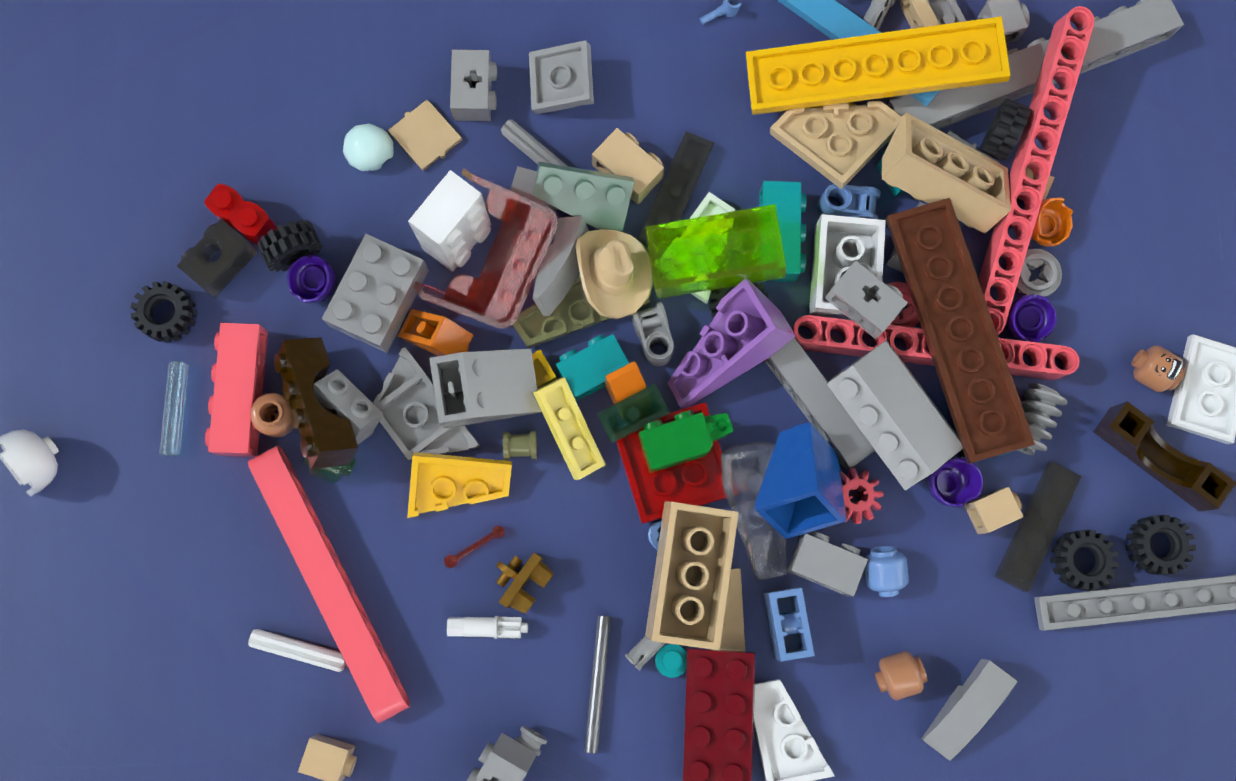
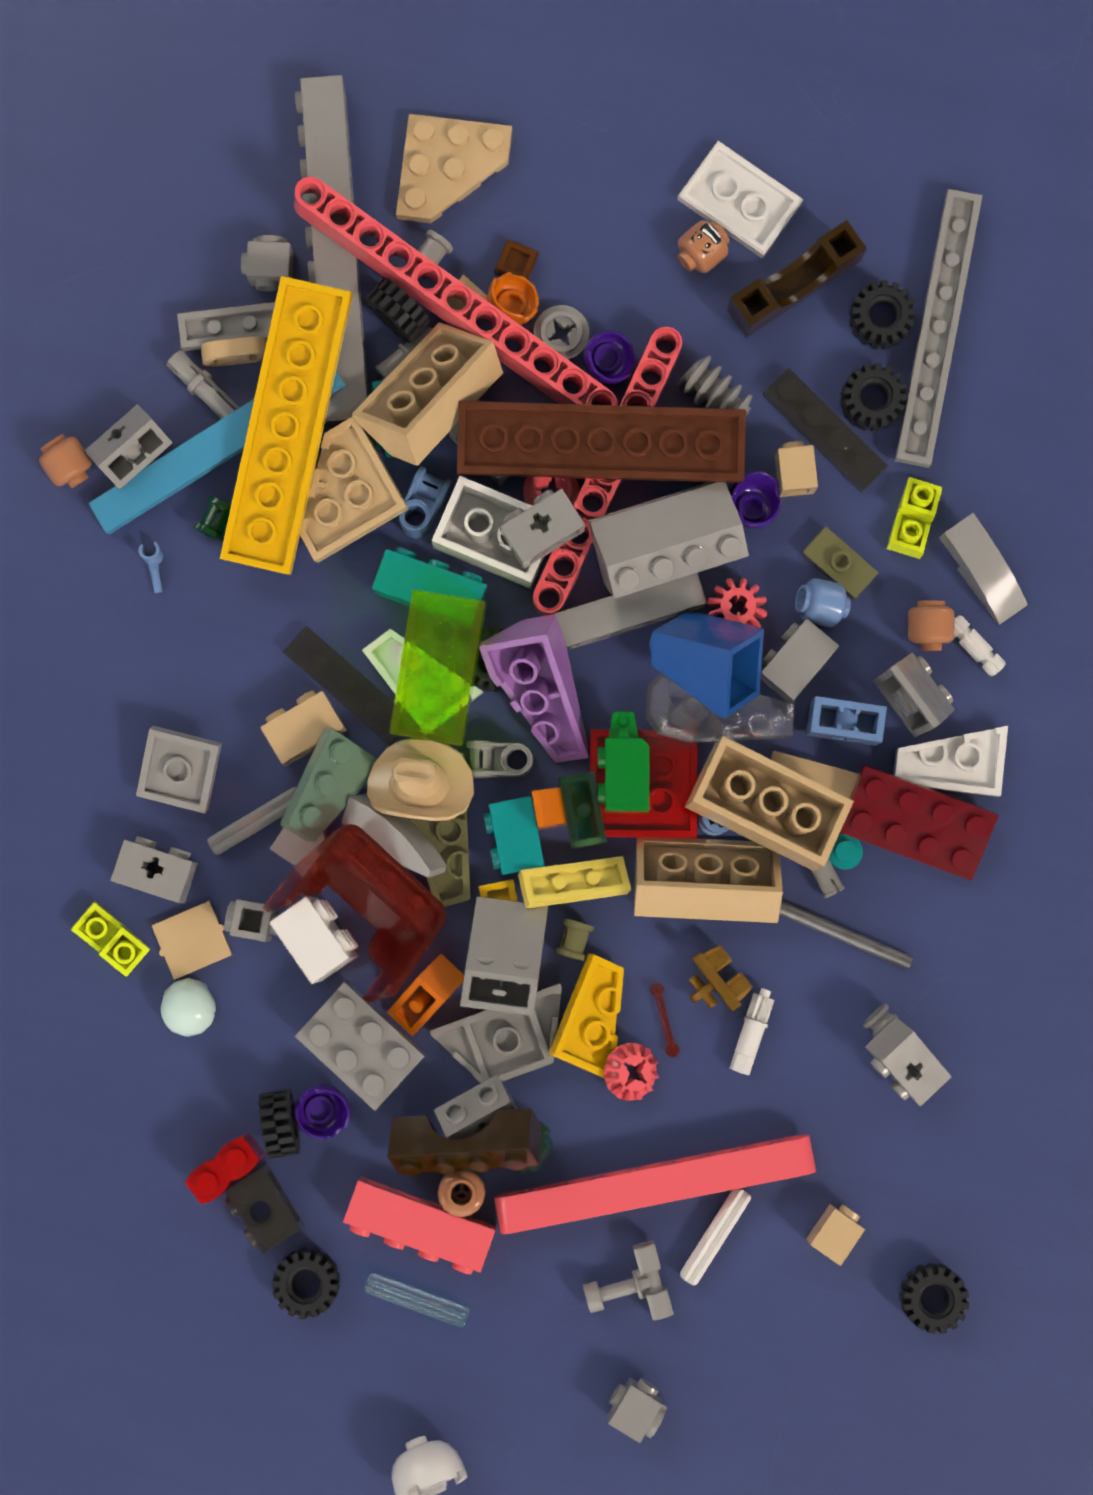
camera: 70 degrees left, 5 degrees up
(125, 626) = (636, 1409): none -> light grey brick
(239, 598) = (644, 1281): none -> light grey bar
(407, 70) = (110, 938): none -> neon yellow slope
(413, 517) = (616, 1073): none -> coral gear
(452, 159) = (249, 920): none -> light grey brick
(607, 544) = (707, 880): none -> tan slope
(775, 40) = (215, 506): none -> dark green bush
(834, 678) = (915, 694): none -> light grey slope
(895, 725) = (977, 647): none -> white axle
(926, 576) = (839, 563): none -> olive plate
(990, 631) = (914, 518): none -> neon yellow slope
(1069, 147) = (435, 246): none -> light grey bush
(1084, 218) = (517, 260): none -> reddish brown tile
(1142, 136) = (446, 163): none -> tan plate

